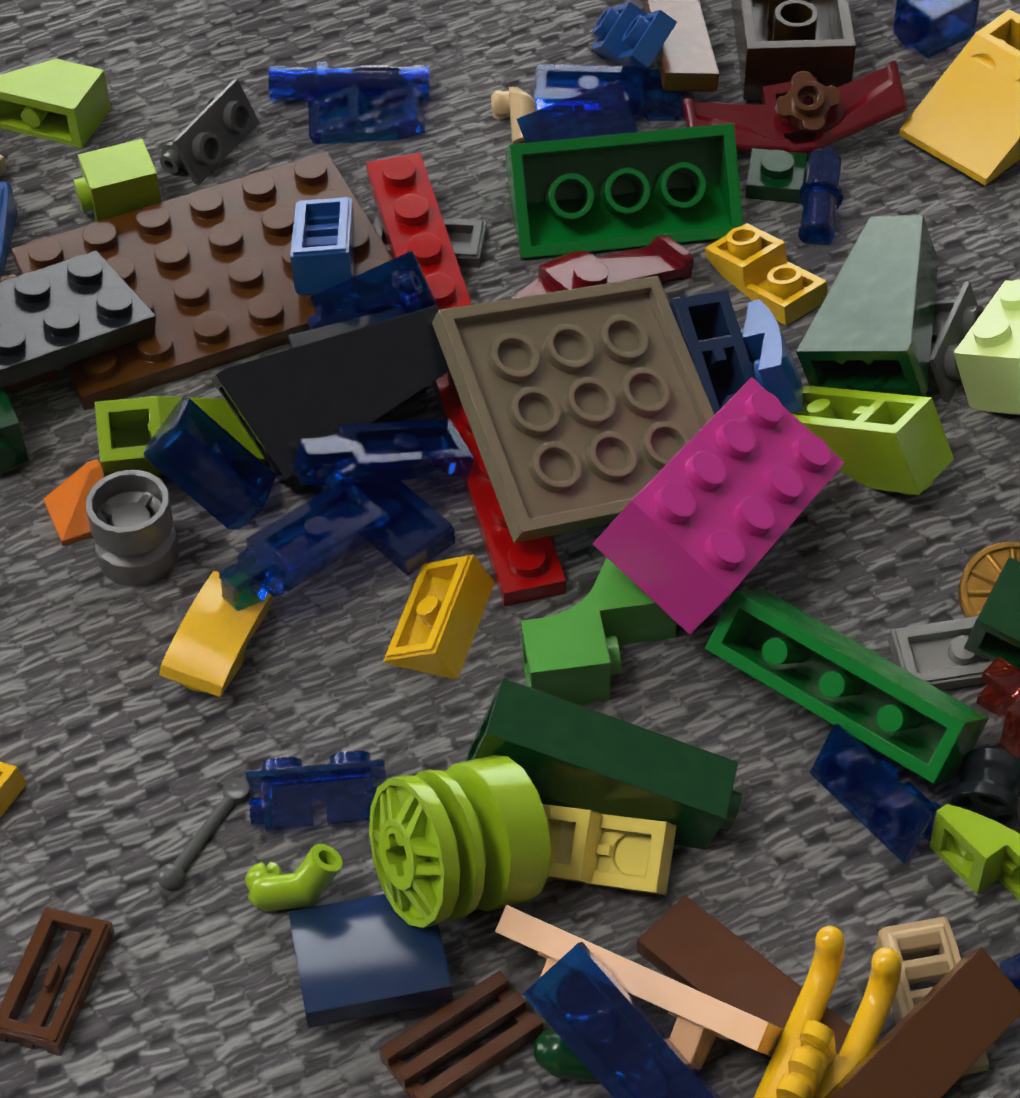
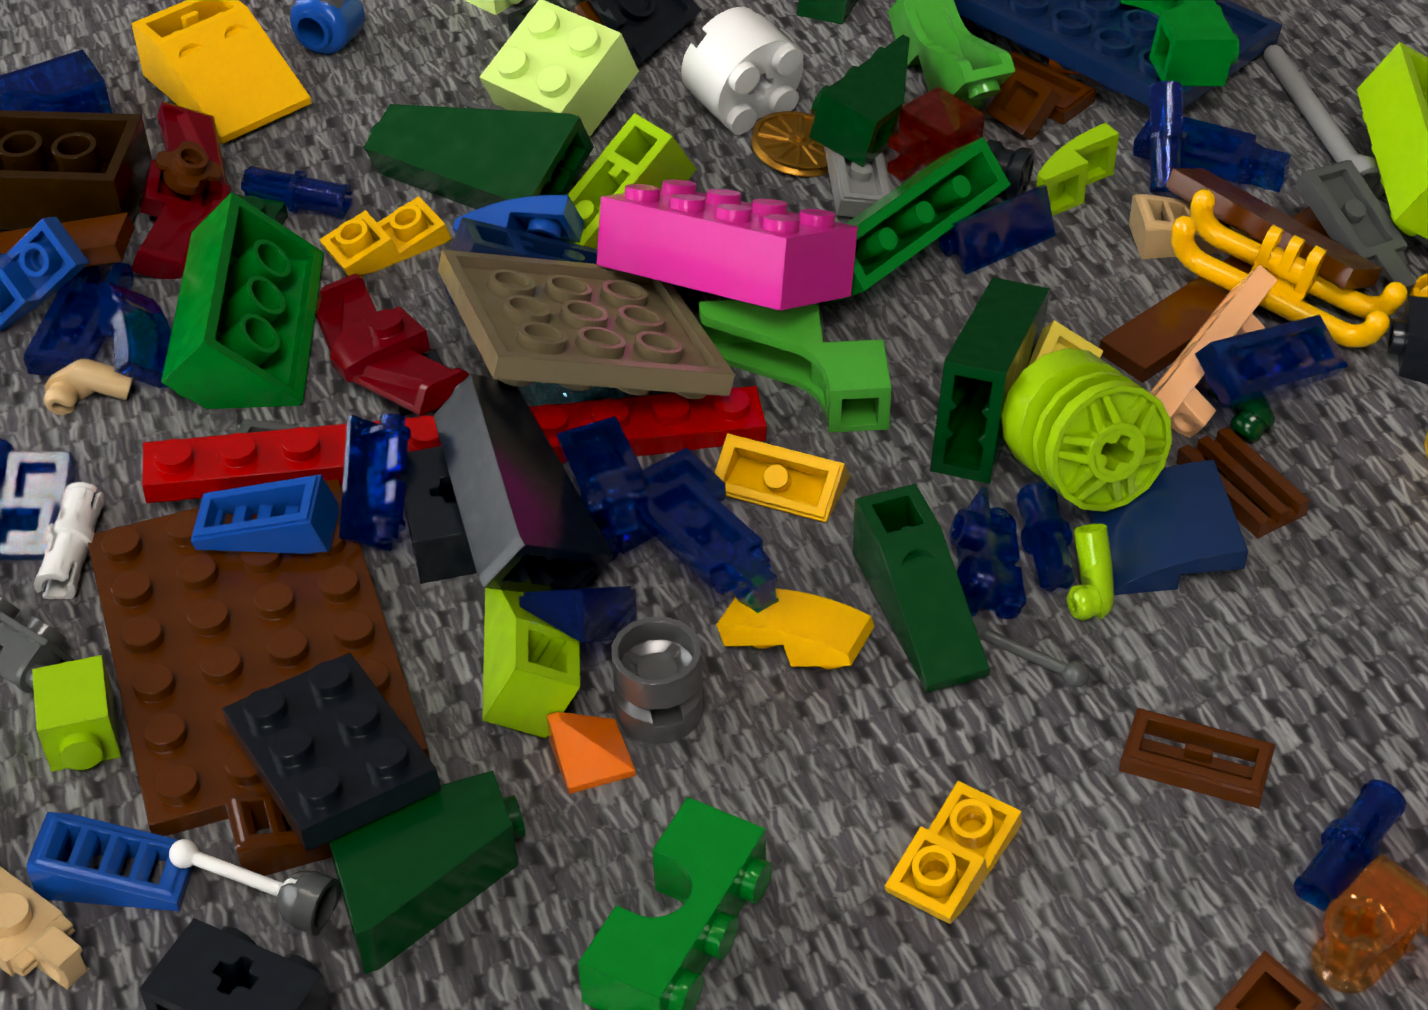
camera: 85 degrees left, 5 degrees down
(265, 713) = (917, 586): none -> dark green slope
(339, 144) = (69, 541): none -> white pin
(347, 837) = (1046, 535): none -> clear blue axle

